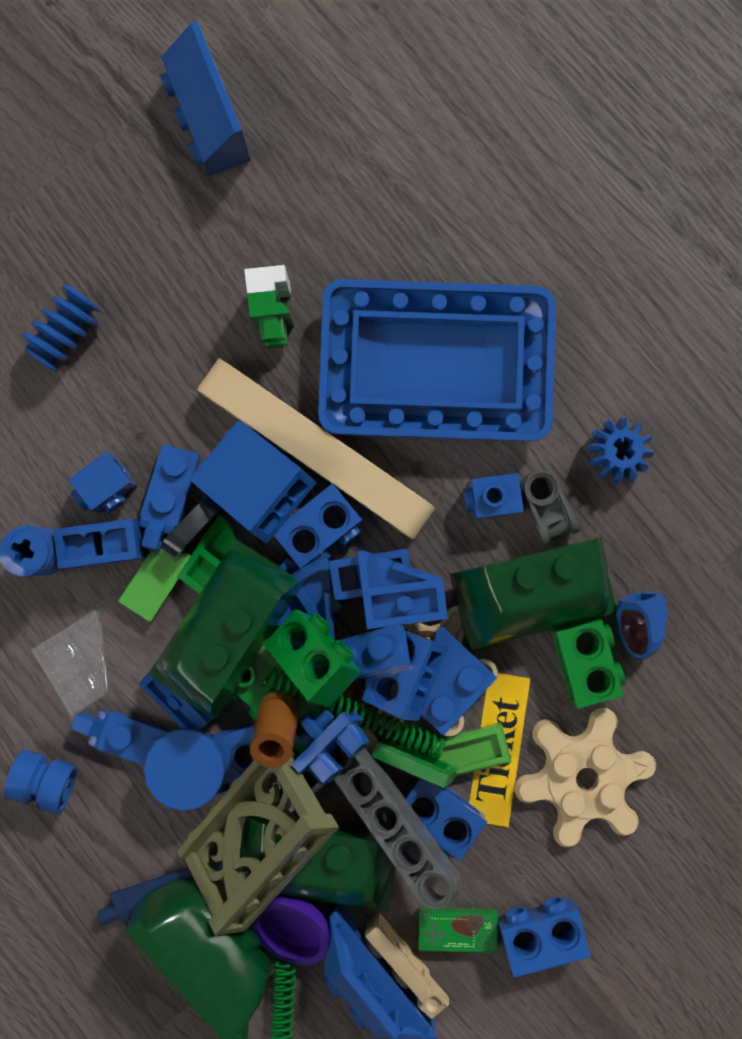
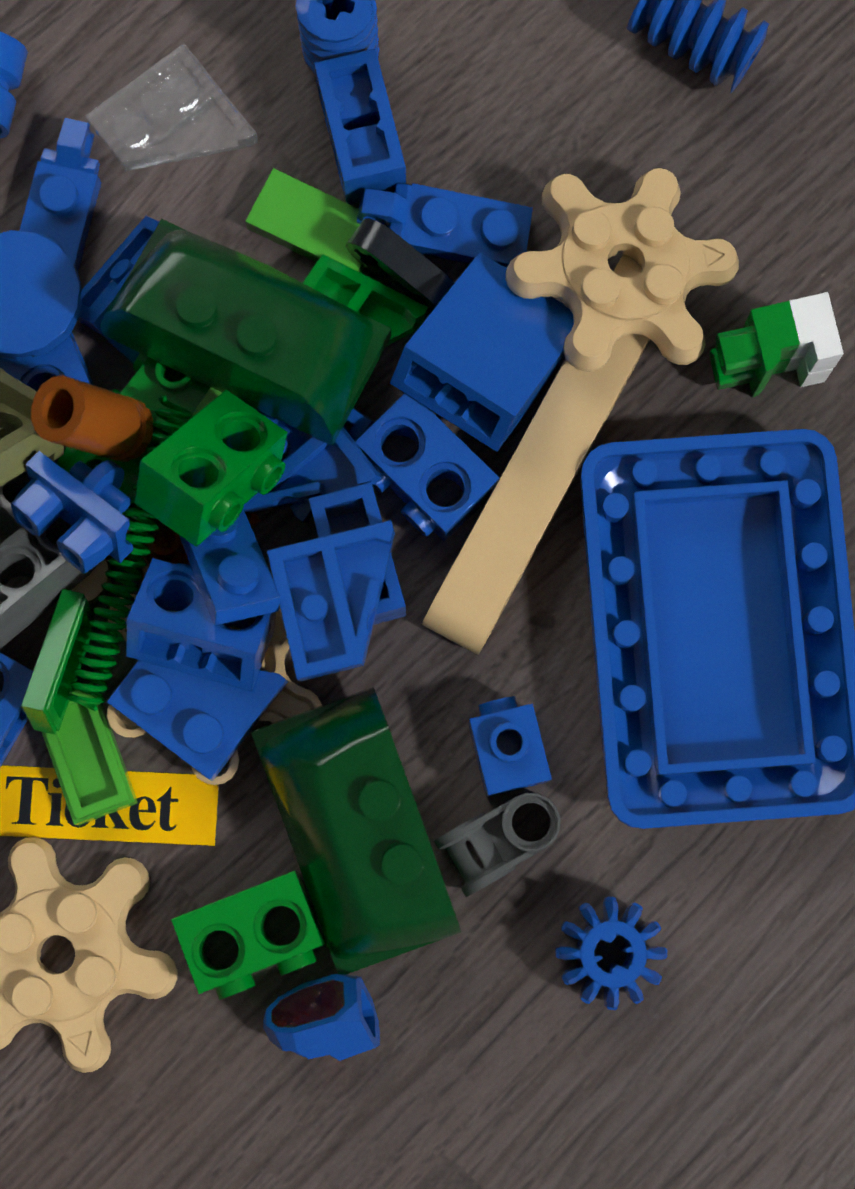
camera: 80 degrees right, 5 degrees down
(102, 484) = (457, 121): blue brick -> none
(229, 409) = (614, 305): none -> tan plate

